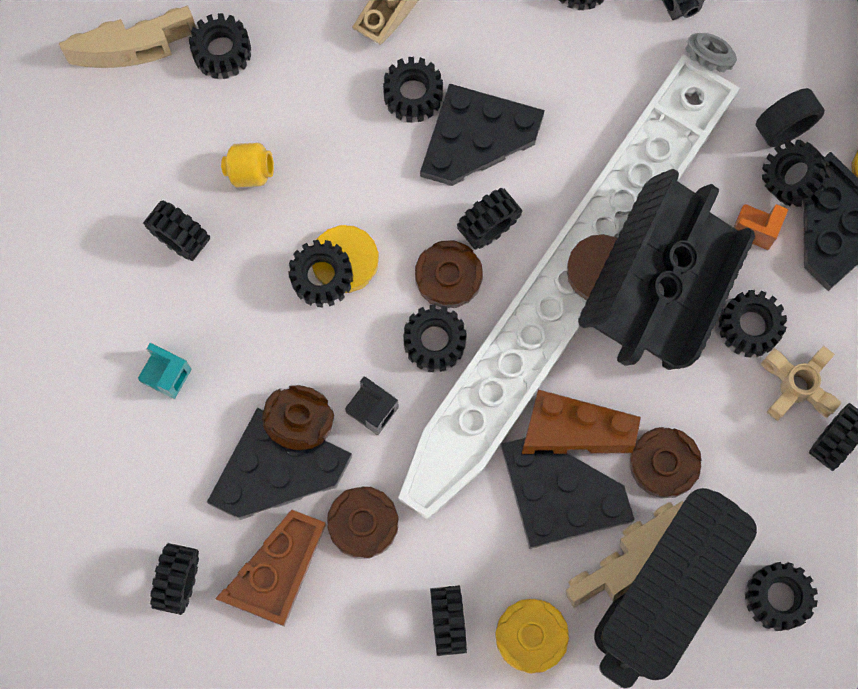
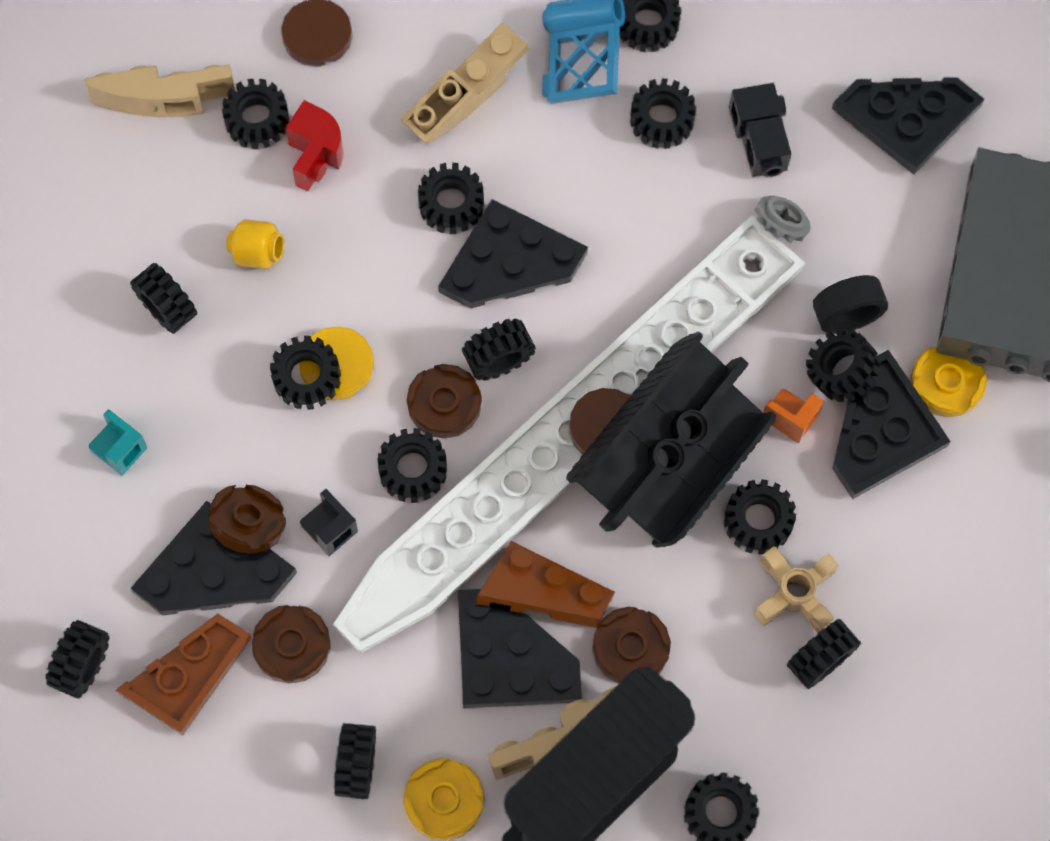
camera: 10 degrees right, 5 degrees down
(283, 58) = (320, 140): none -> red brick

